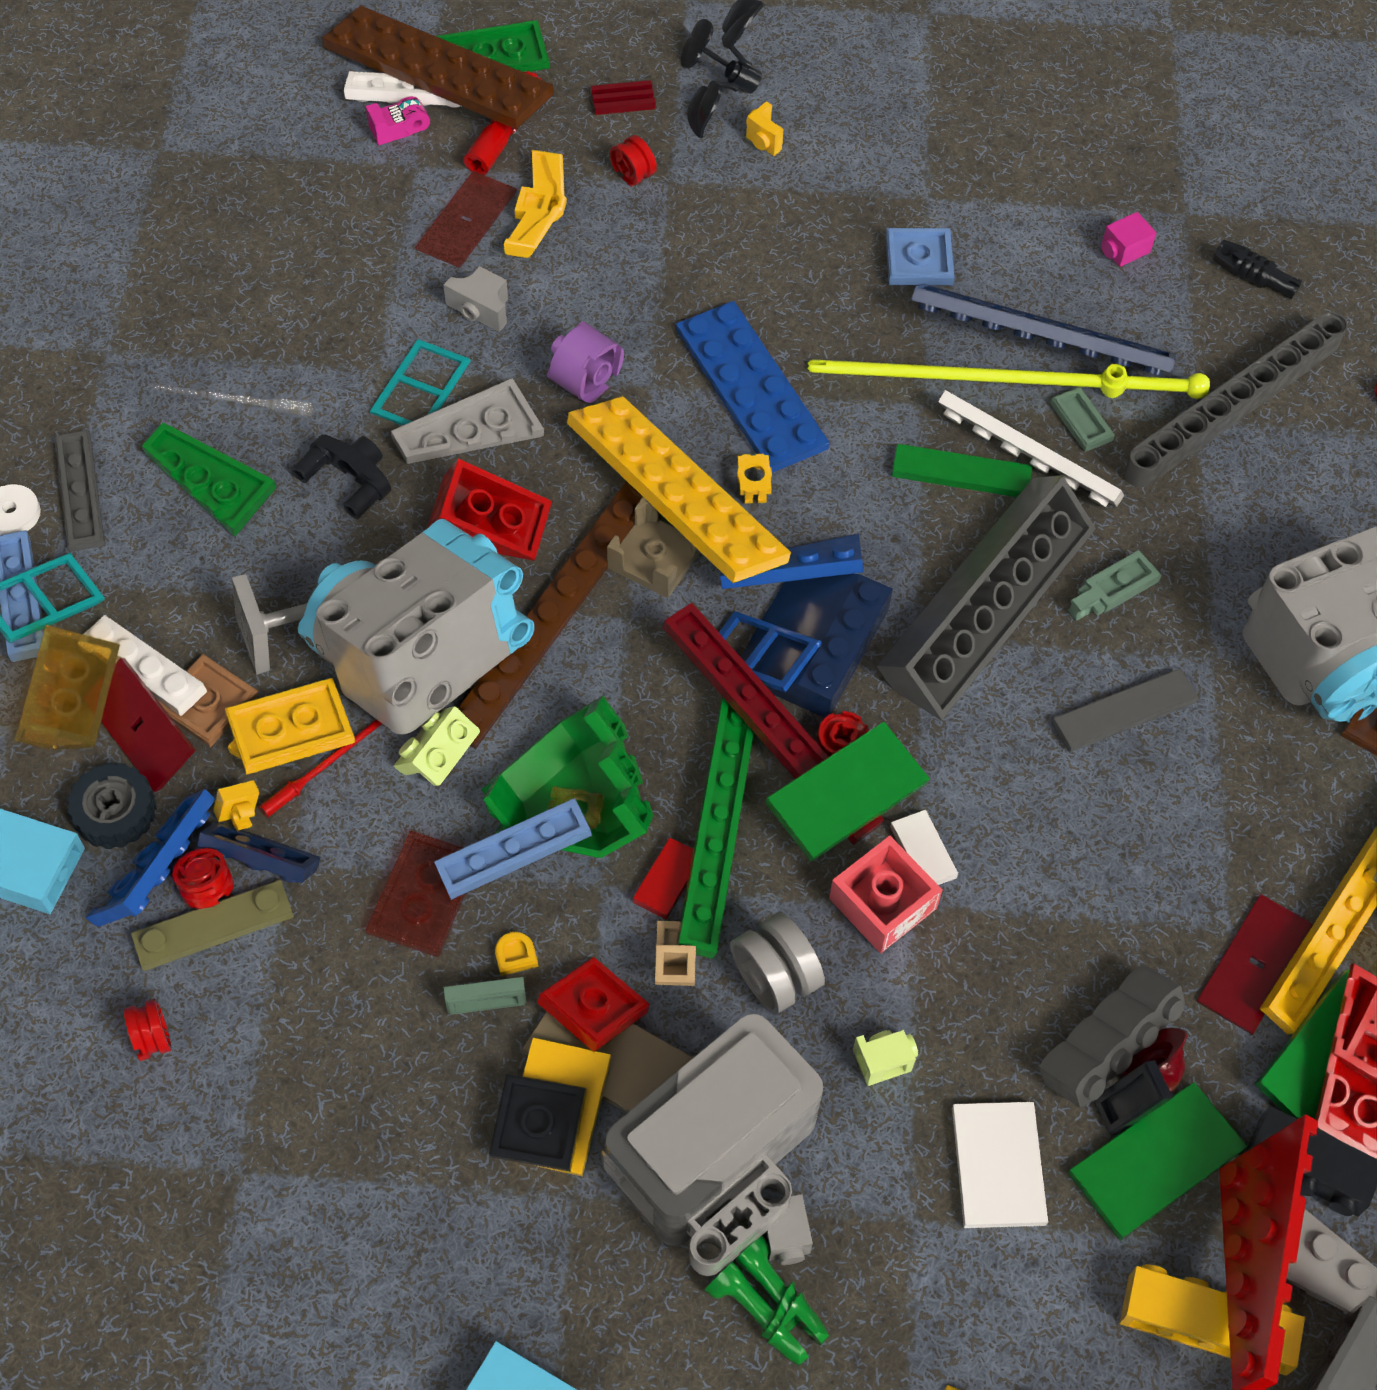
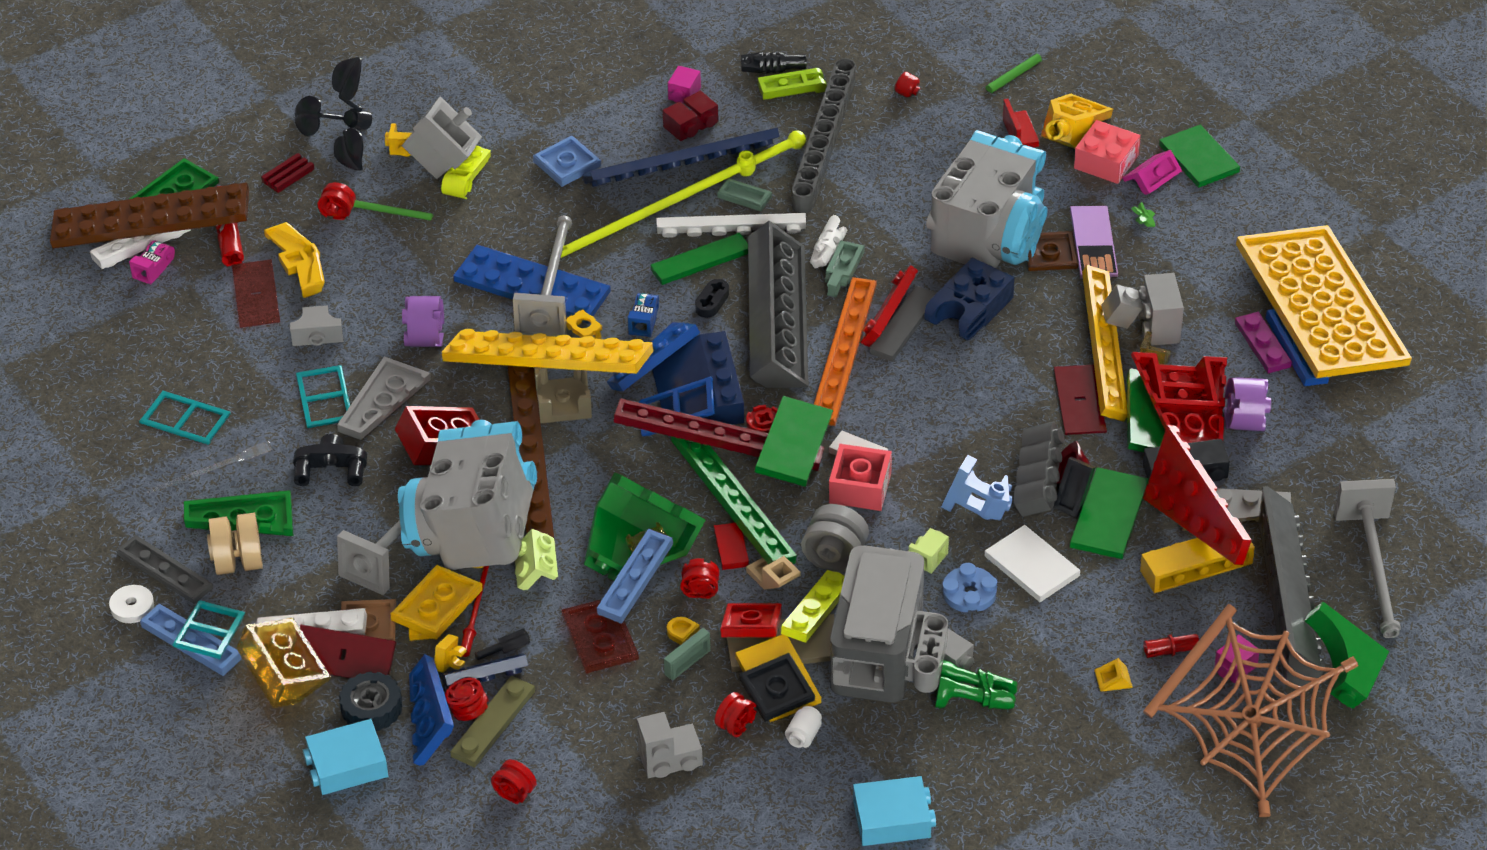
camera: 35 degrees left, 15 degrees down
(148, 507) = (228, 544): none -> tan wheel
(244, 330) = (193, 404): none -> teal window
(315, 832) = (506, 644): none -> black axle
(340, 1113) = (667, 748): none -> light grey brick
(460, 1124) = (735, 714): none -> red wheel
(524, 1201) = (803, 727): none -> white brick
(585, 903) = (699, 579): none -> red wheel
(673, 1041) = (814, 607): none -> neon yellow plate
(689, 205) = (393, 210): none -> bright green axle
(715, 436) = (544, 312): none -> light grey tile
(783, 209) = (459, 181): none -> neon yellow plate
(797, 148) = (442, 138): none -> light grey piece
(833, 503) = (645, 312): none -> blue leg
(877, 1163) = (969, 575): none -> medium blue plate
(930, 533) = (707, 295): none -> black beam
(1002, 1026) = (966, 482): none -> medium blue tile
(1024, 698) = (845, 345): none -> orange tile
(1079, 695) = (875, 327): none -> red plate
(1090, 287) = (685, 122): none -> dark red piece
(1122, 543) = (827, 242): none -> white hinge
(1230, 731) = (971, 297): none -> dark blue brick
(1256, 309) = (792, 83): none -> lime plate

